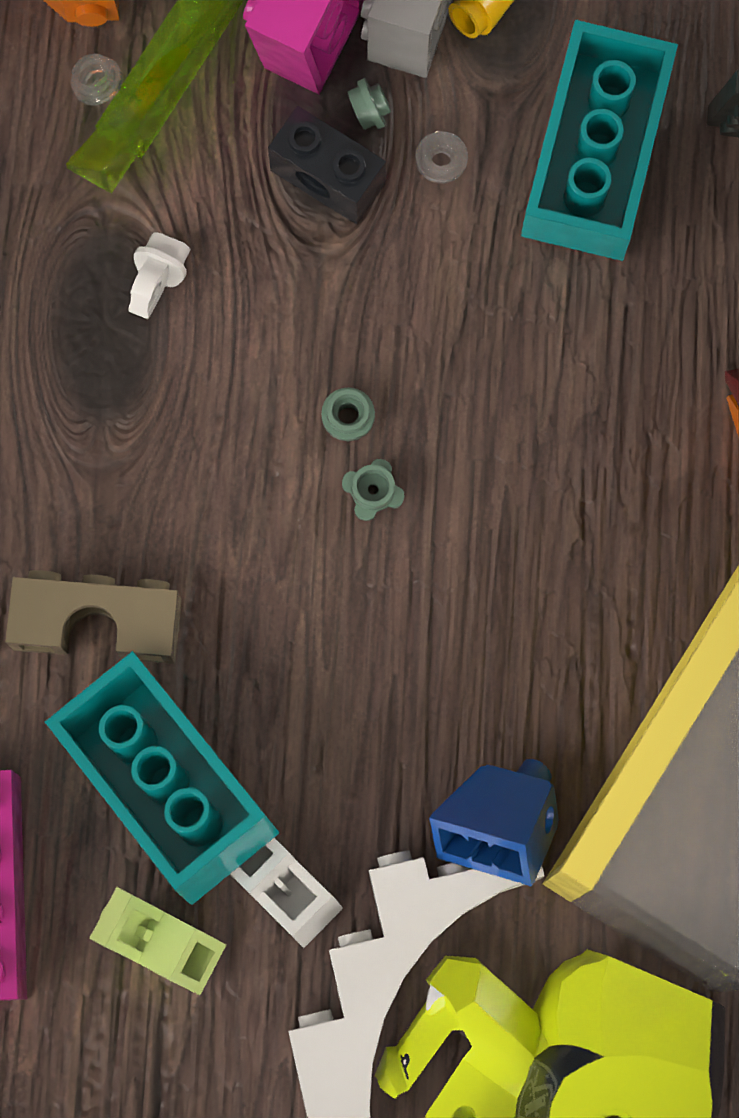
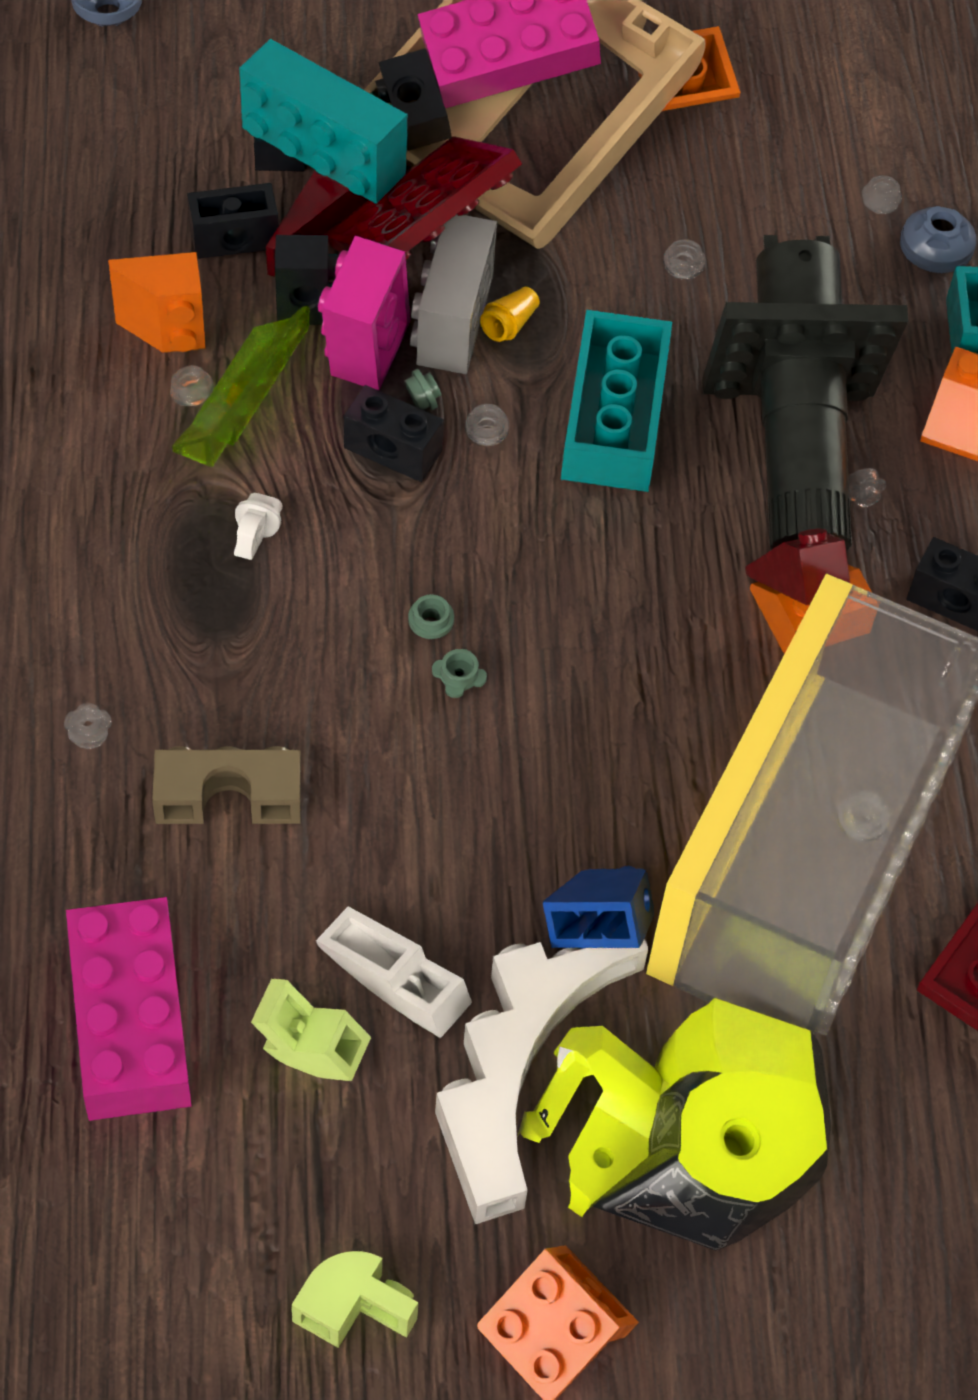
camera: 10 degrees left, 20 degrees down
(161, 778) = (303, 893): teal brick -> none

